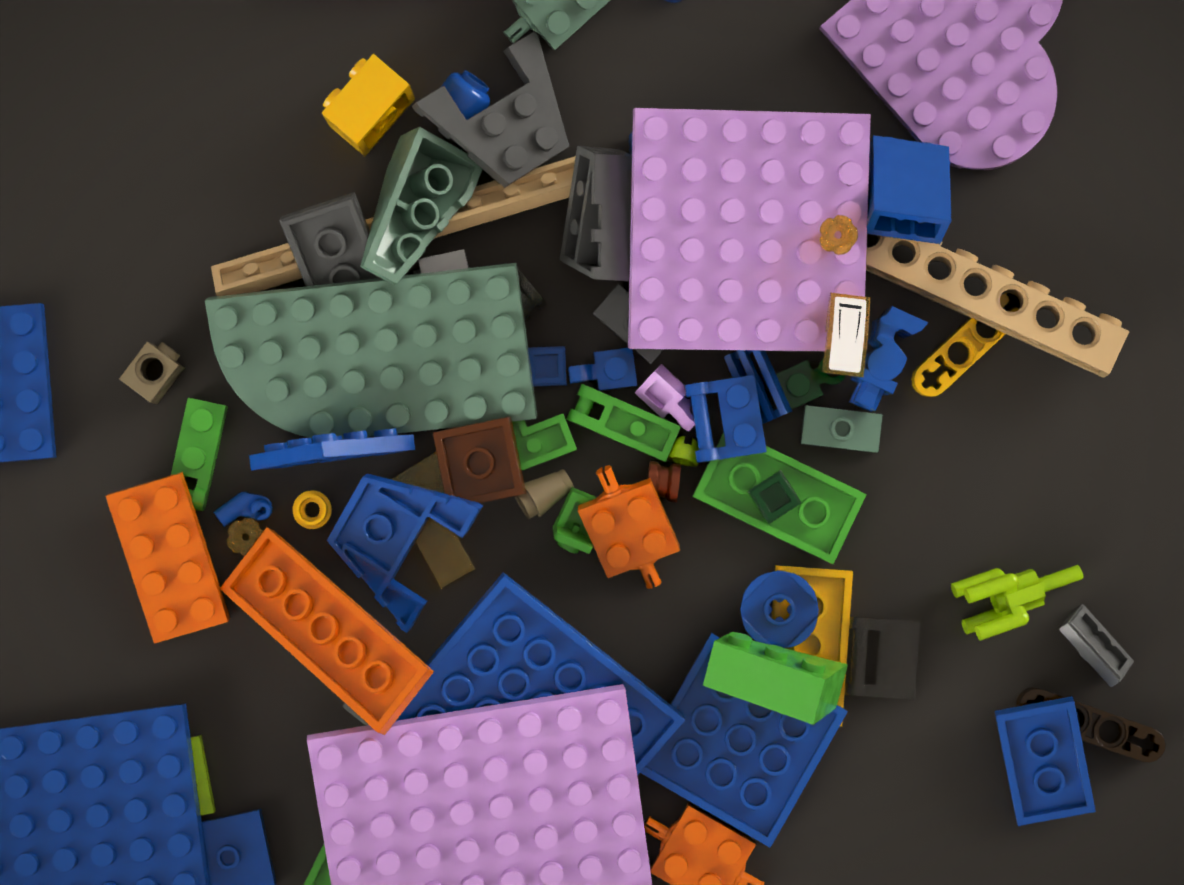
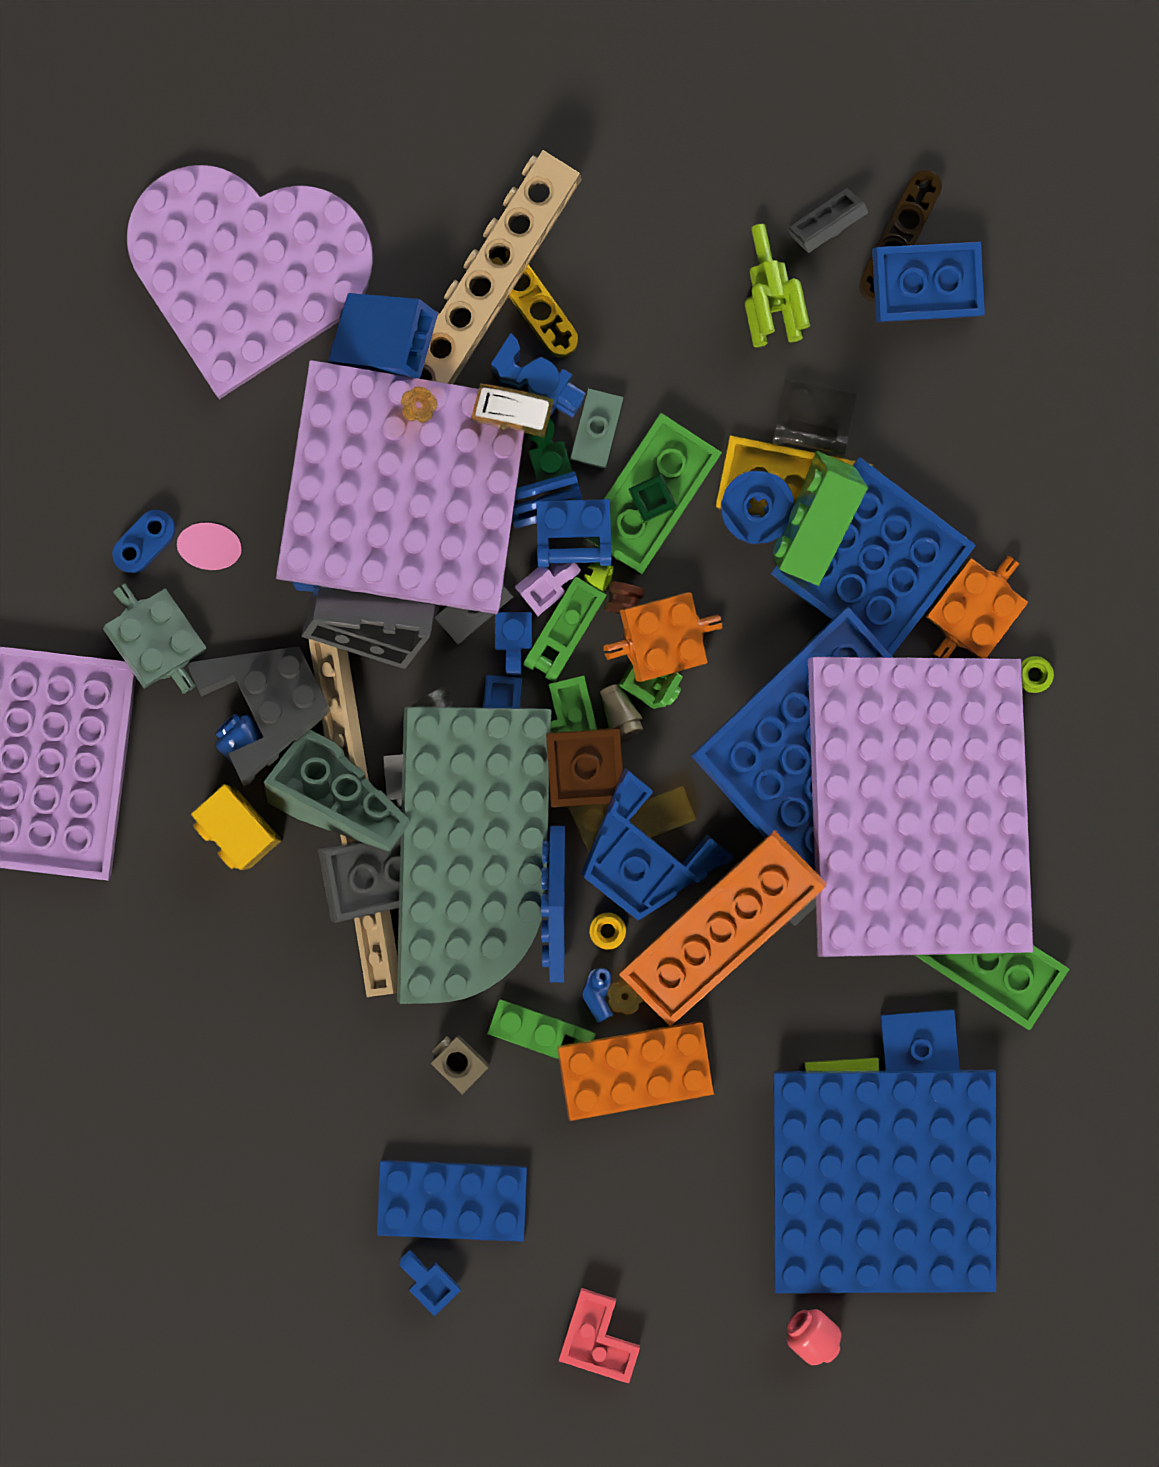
camera: 70 degrees left, 0 degrees up
(662, 39) = (209, 546): none -> bright pink sticker

